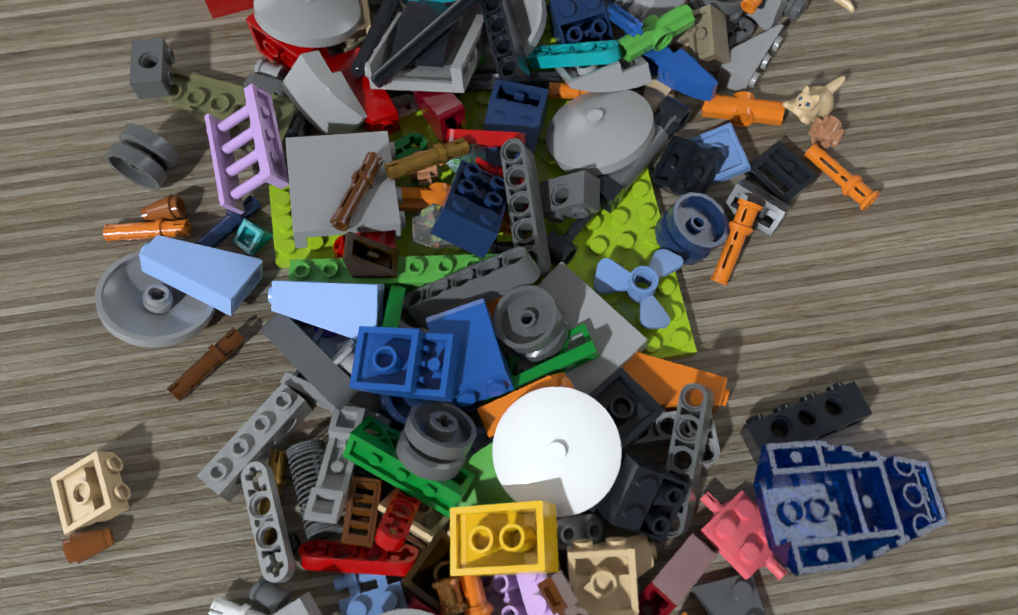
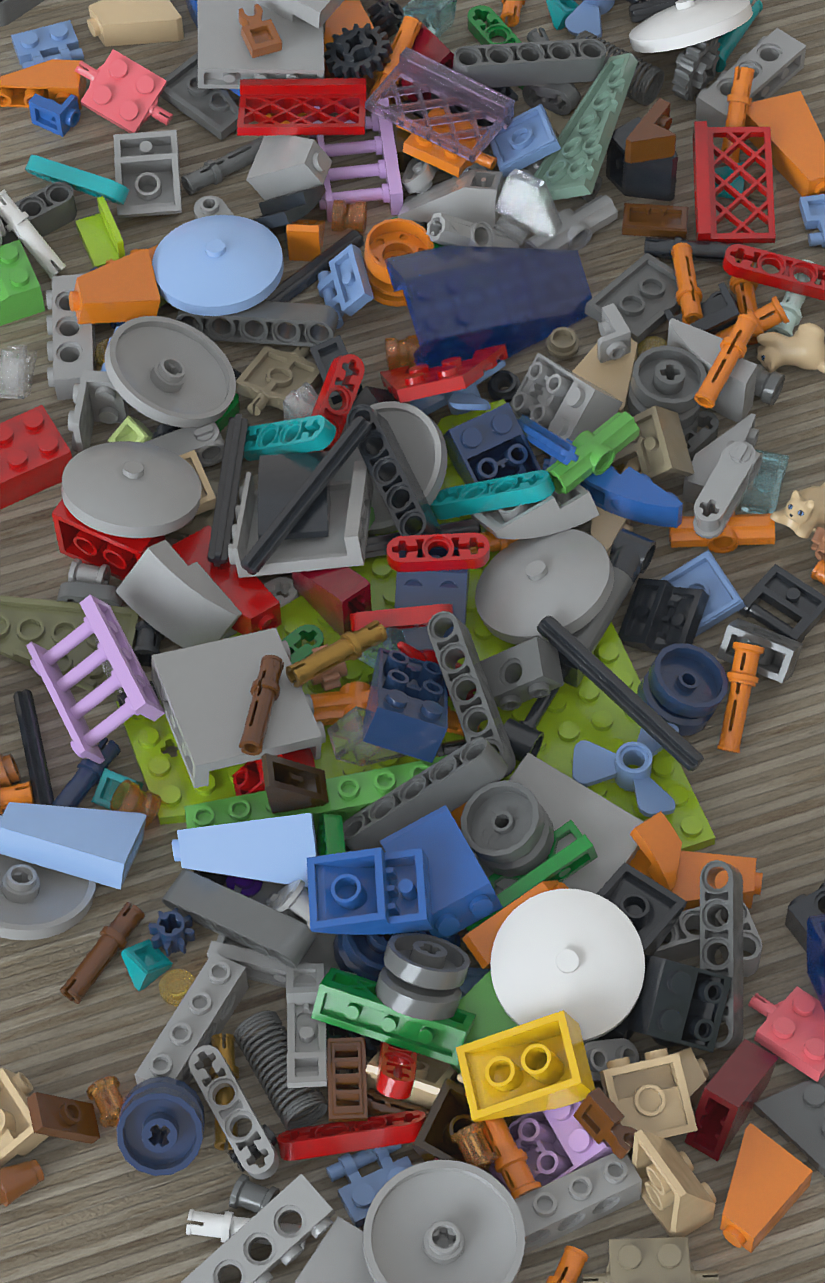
camera: 10 degrees left, 10 degrees down
(135, 500) = (63, 1118): none -> reddish brown plate
(179, 489) = (111, 1091): none -> clear orange bush
(199, 195) = (33, 747): none -> black axle
(204, 525) = (154, 1147): none -> dark blue wheel
(237, 377) = (145, 963): none -> teal slope
(253, 400) = (175, 985): none -> clear yellow plate
(258, 248) = (130, 798): none -> clear orange wheel
(261, 357) = (172, 932): none -> dark blue gear
(515, 83) = (412, 543): none -> red beam
(642, 226) = (620, 693): none -> black axle
(652, 358) = (662, 848): none -> orange slope
(752, 76) = (725, 488): none -> light grey piece
(780, 78) = (765, 490): none -> clear light blue slope

